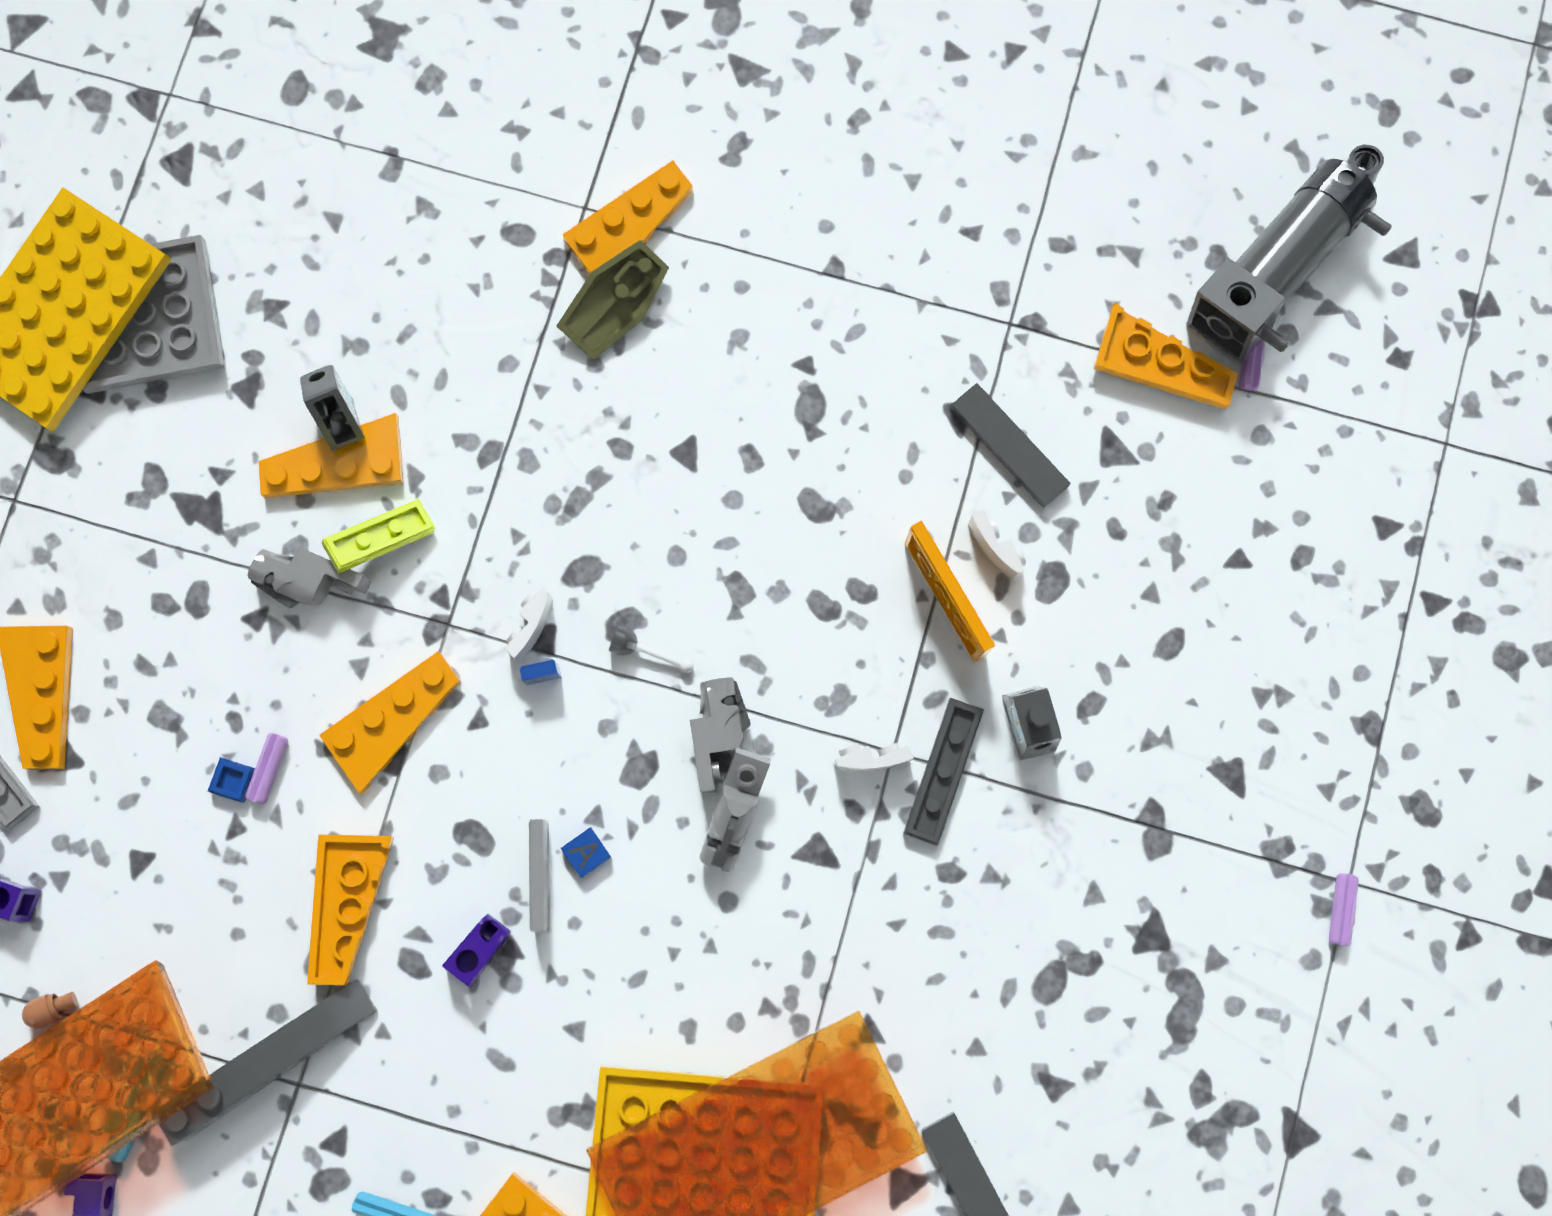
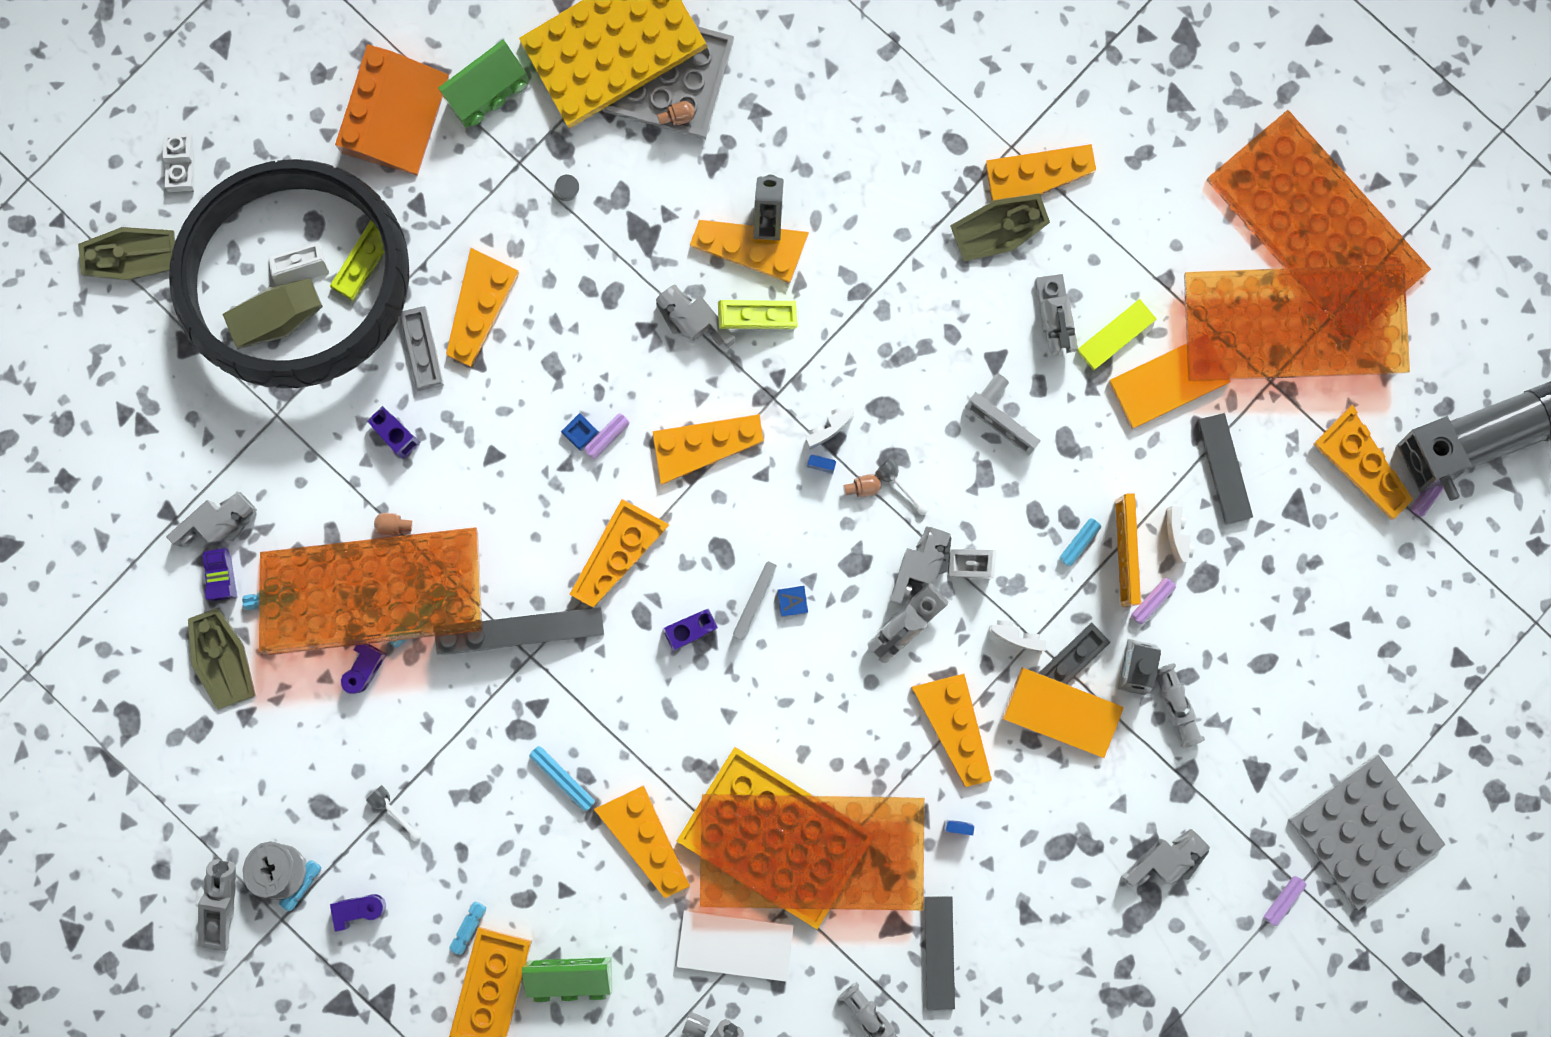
camera: 30 degrees right, 5 degrees up
(82, 501) = (566, 187): none -> dark grey piece
(172, 351) = (677, 113): none -> nougat cylinder
(603, 673) = (863, 486): none -> nougat cylinder
(698, 513) = (982, 407): none -> light grey piece
(728, 365) = (1056, 314): none -> light grey plate
(776, 699) = (972, 563): none -> white slope
(809, 356) = (1116, 334): none -> neon yellow tile
(847, 896) = (955, 724): none -> light orange wing
(889, 611) = (1080, 542): none -> medium azure axle
(896, 379) = (1159, 387): none -> light orange tile
(919, 1023) = (959, 827): none -> blue tile
(970, 821) = (1062, 712): none -> light orange tile
(971, 127) = (1308, 205): none -> clear orange plate
(1003, 242) = (1296, 322): none -> clear orange plate
(1008, 636) = (1153, 600): none -> lavender axle
(1089, 732) = (1178, 702): none -> light grey piece
(1185, 934) = (1169, 861): none -> light grey plate
(1392, 779) = (1367, 832): none -> light grey plate

